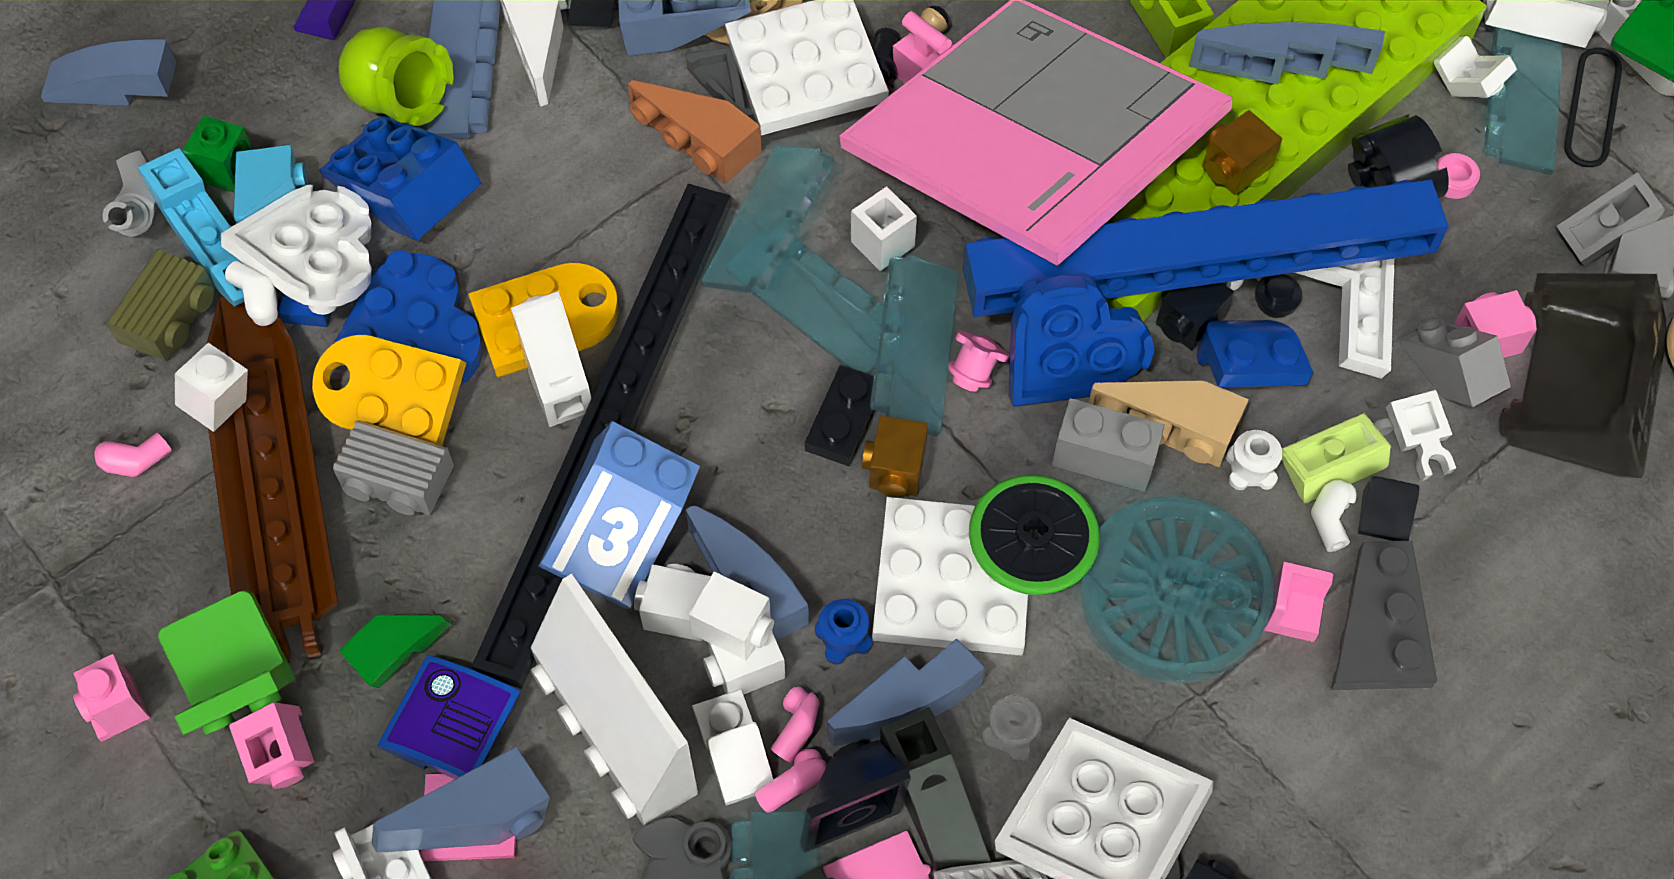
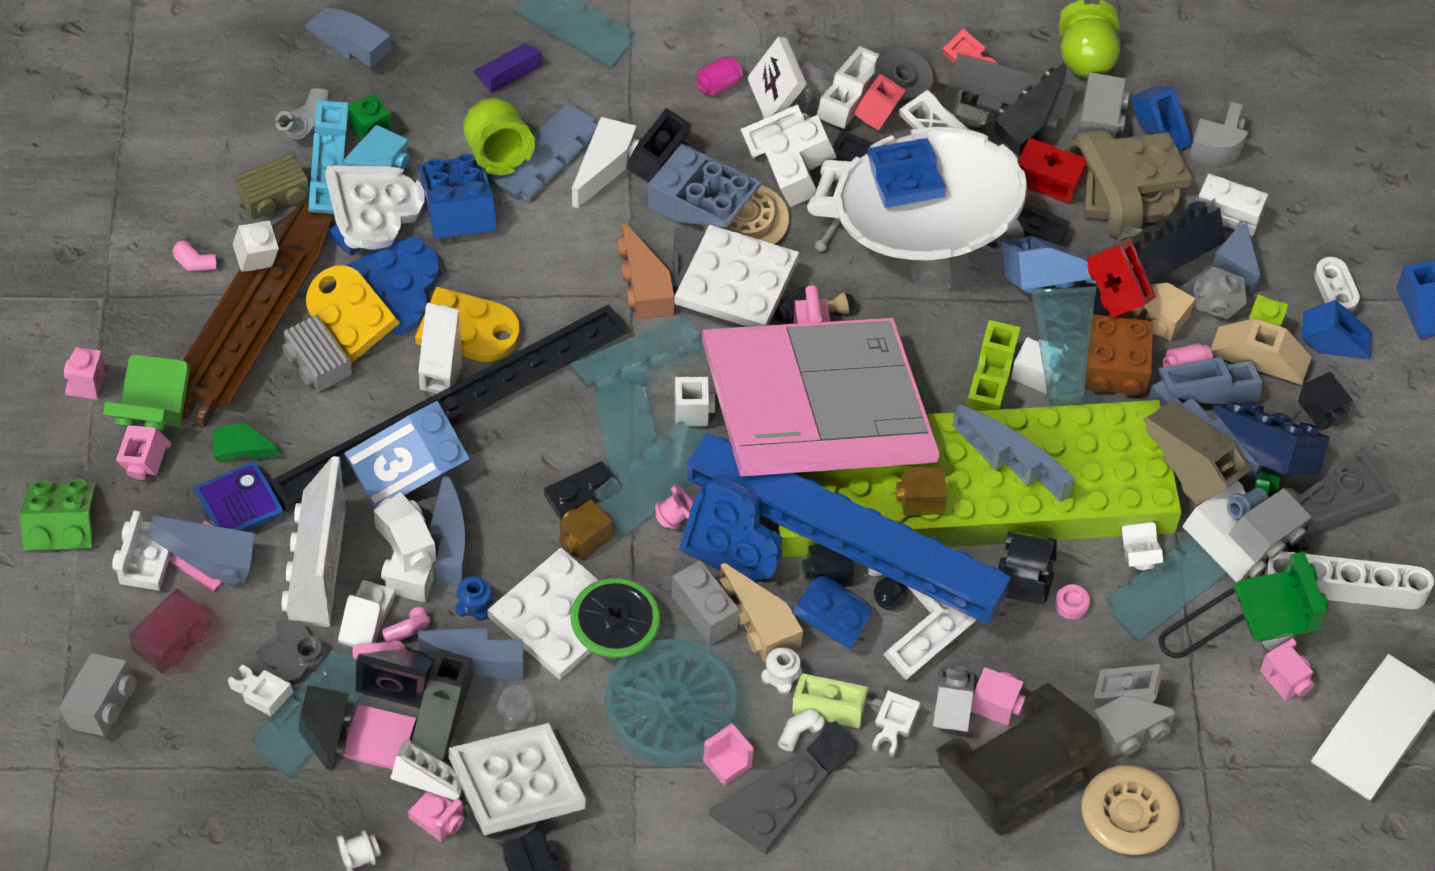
camera: 35 degrees right, 5 degrees down
(257, 291) = (323, 211): white arm -> none

